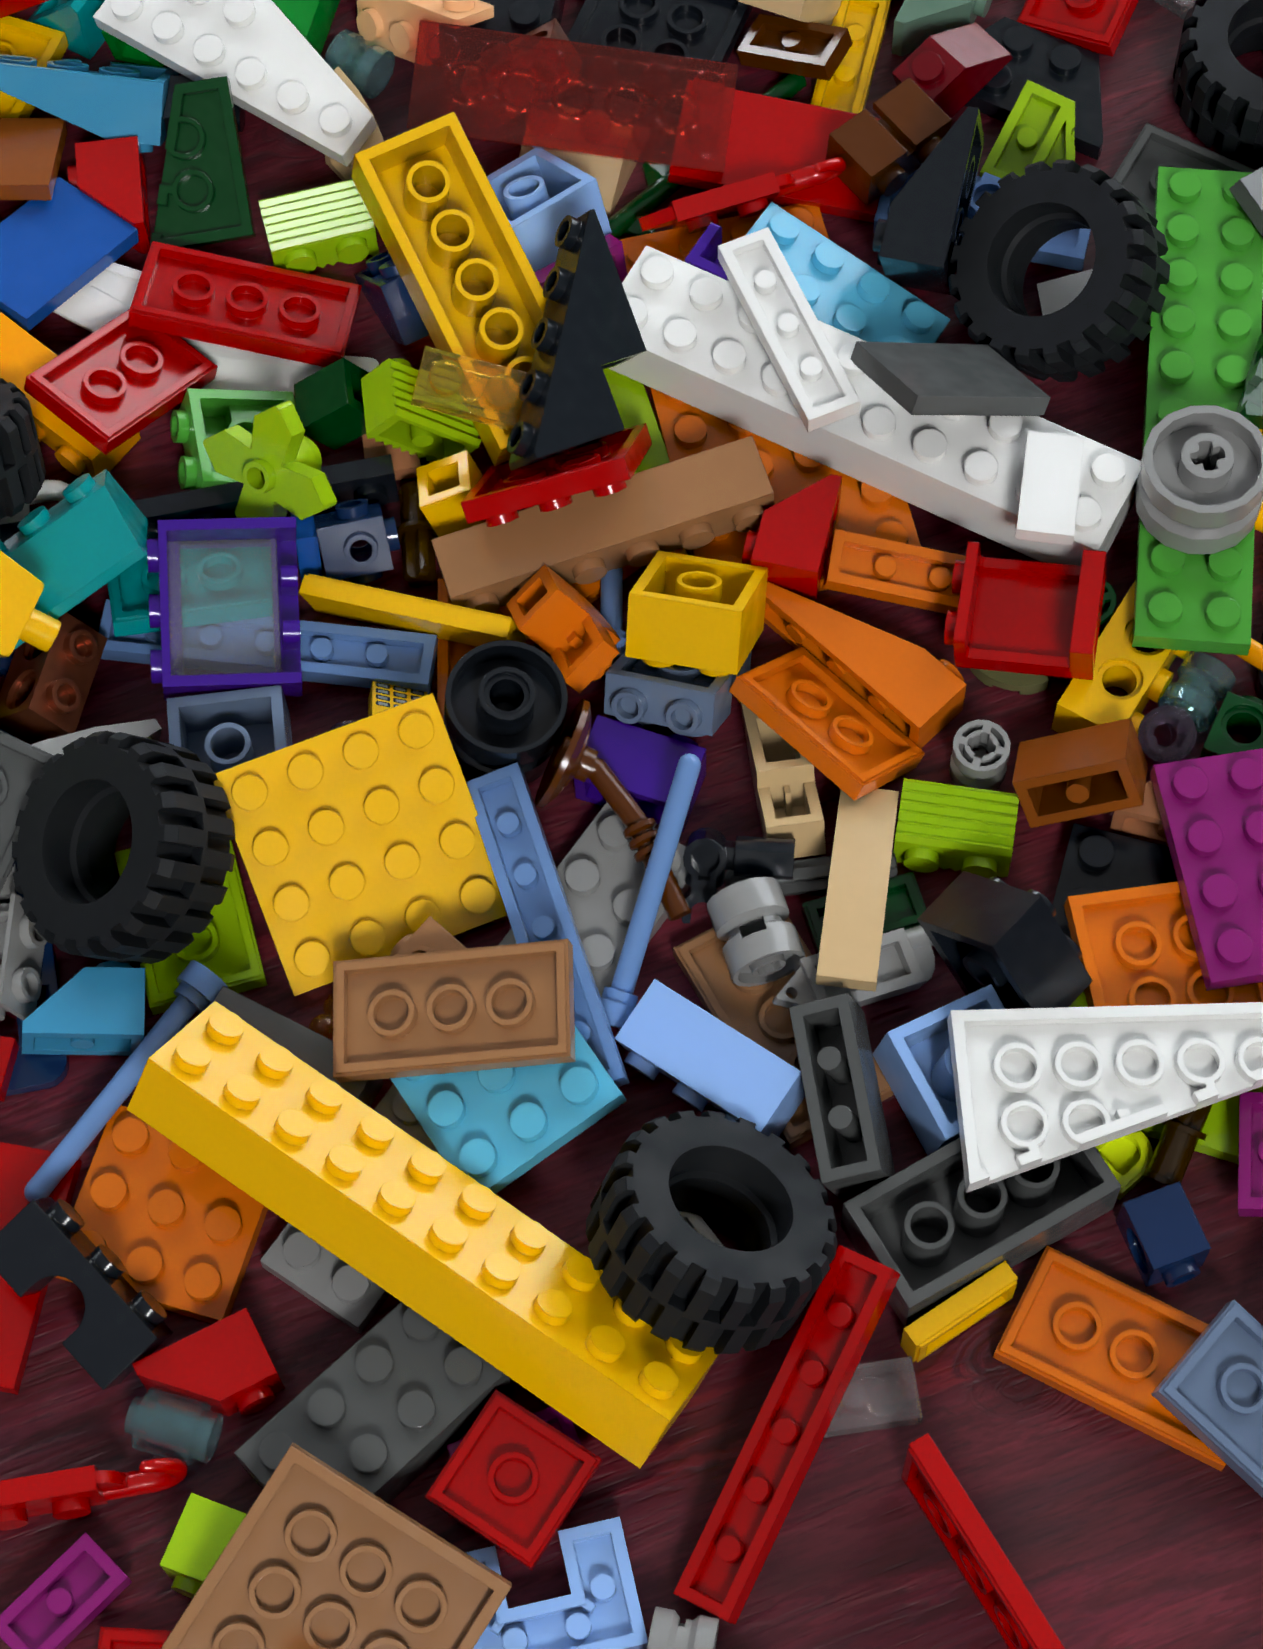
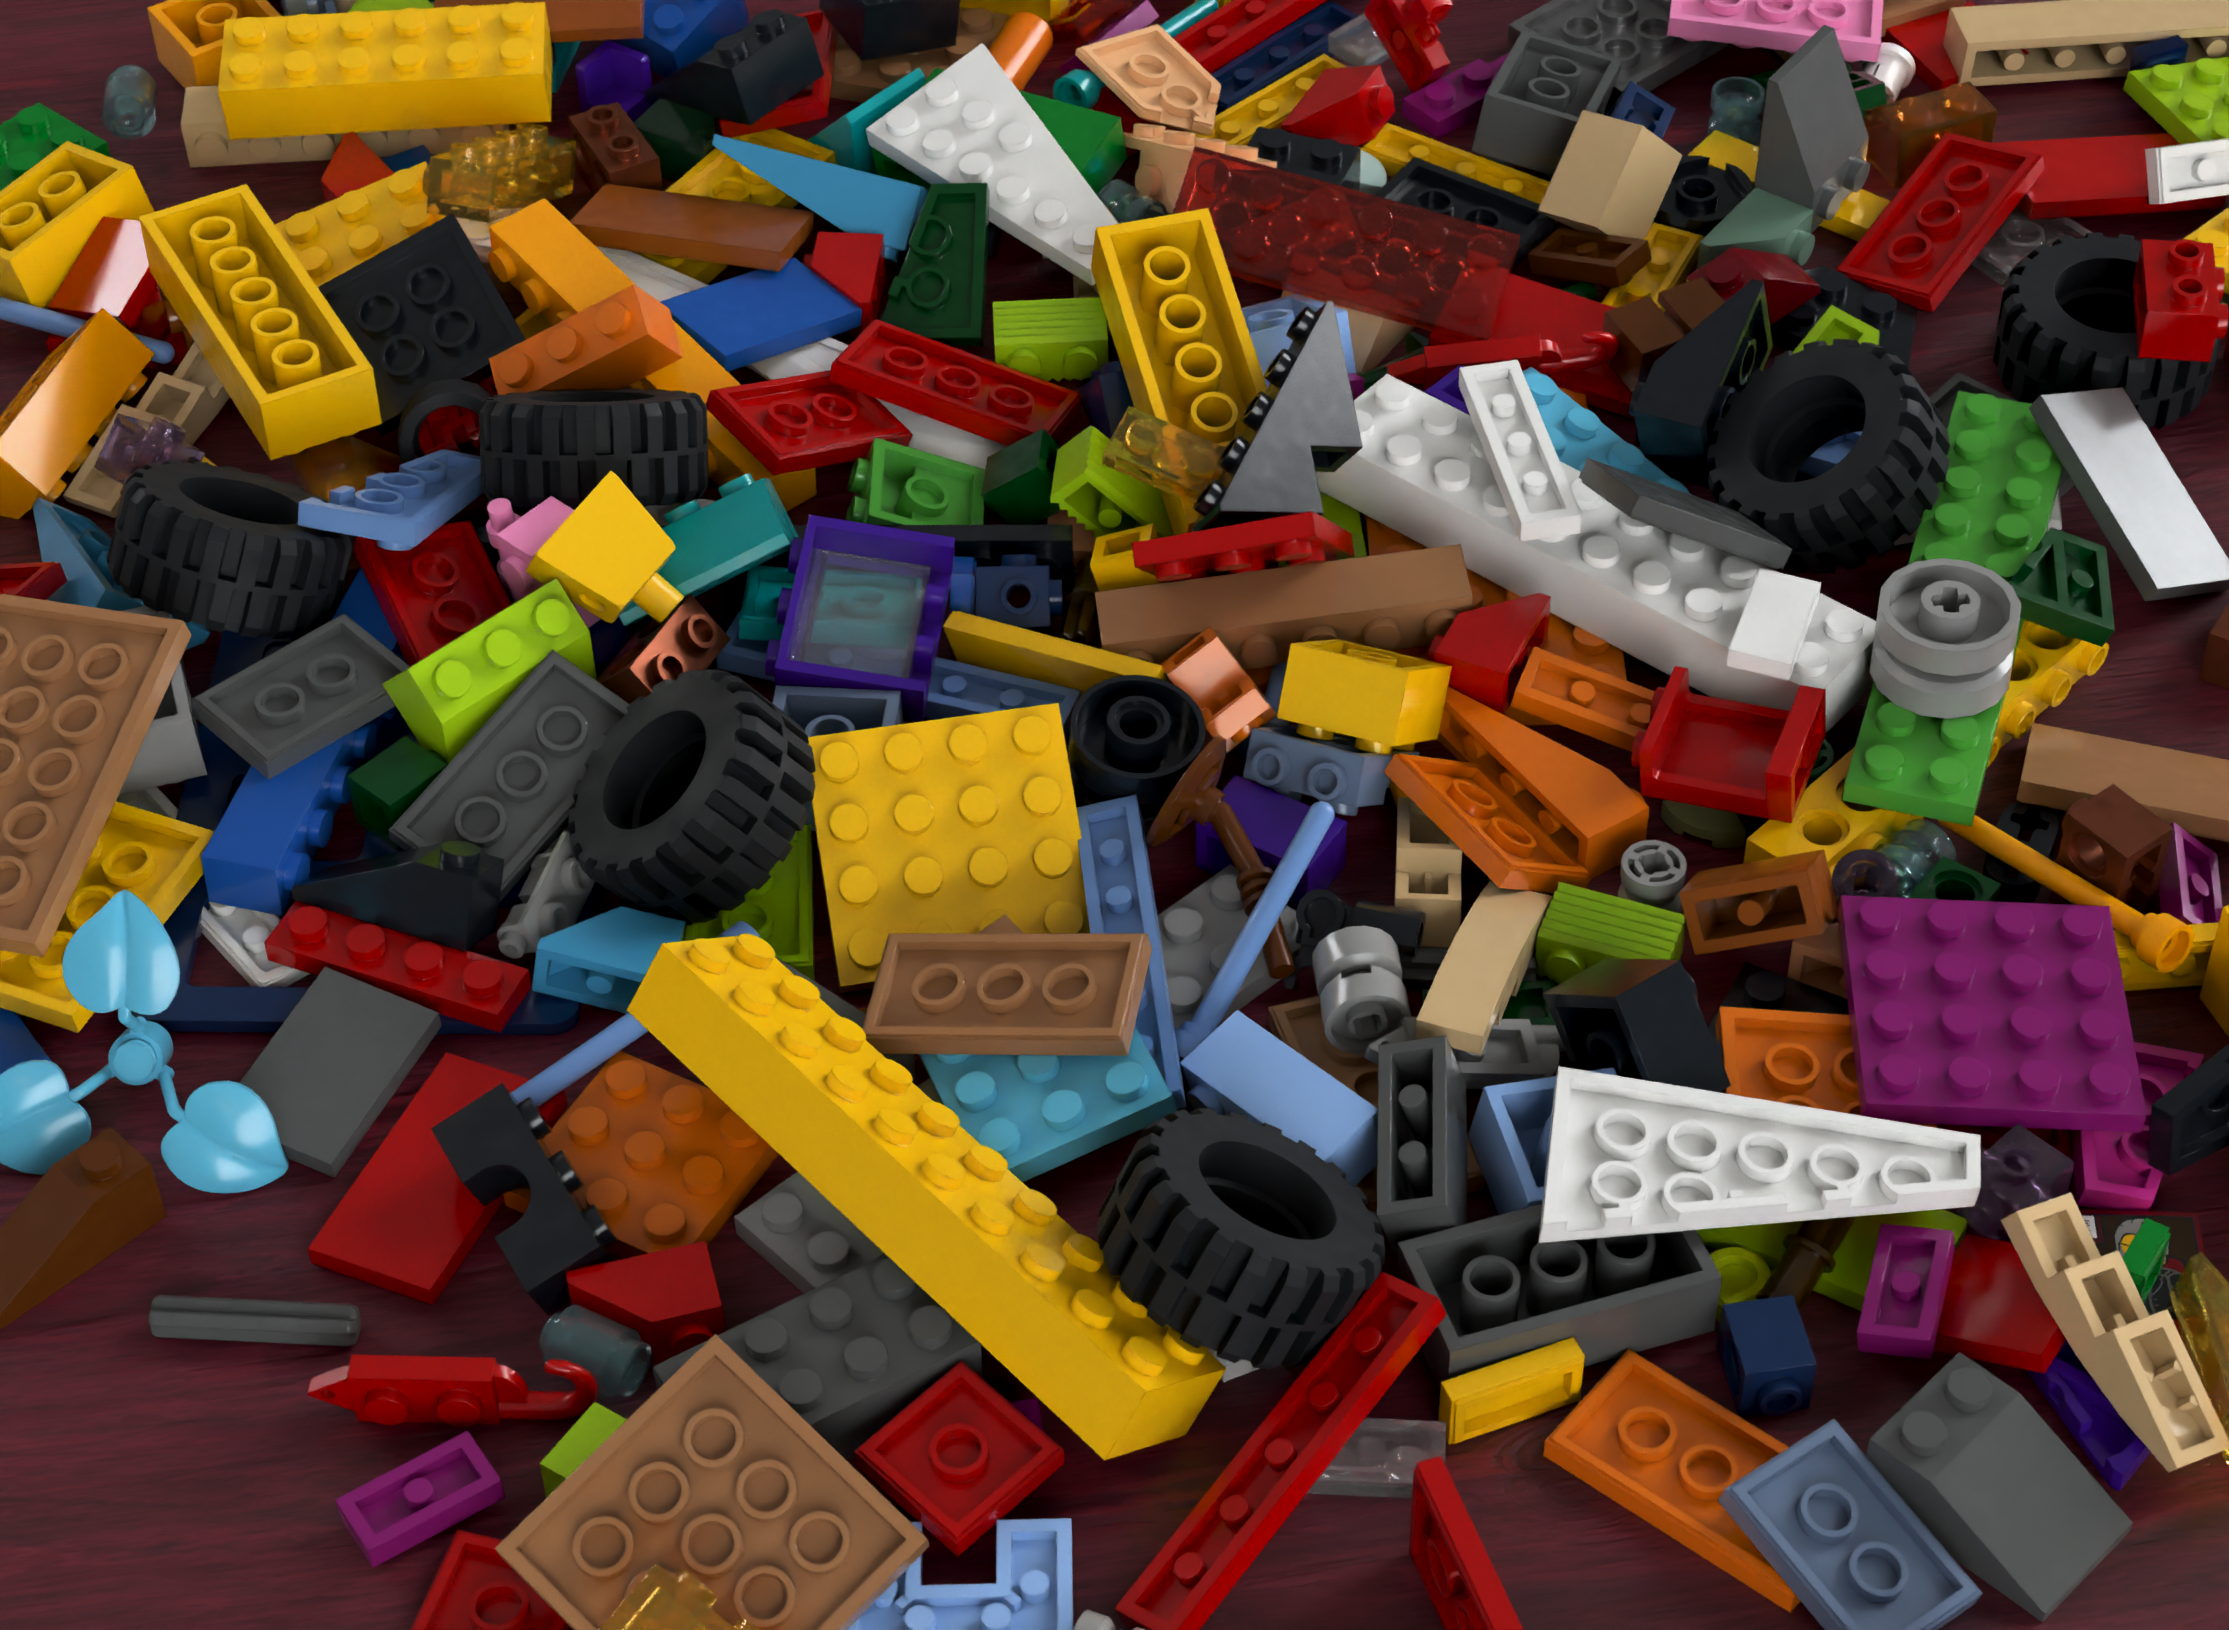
camera: 10 degrees right, 20 degrees down
(274, 465) = (945, 492): lime plant -> none

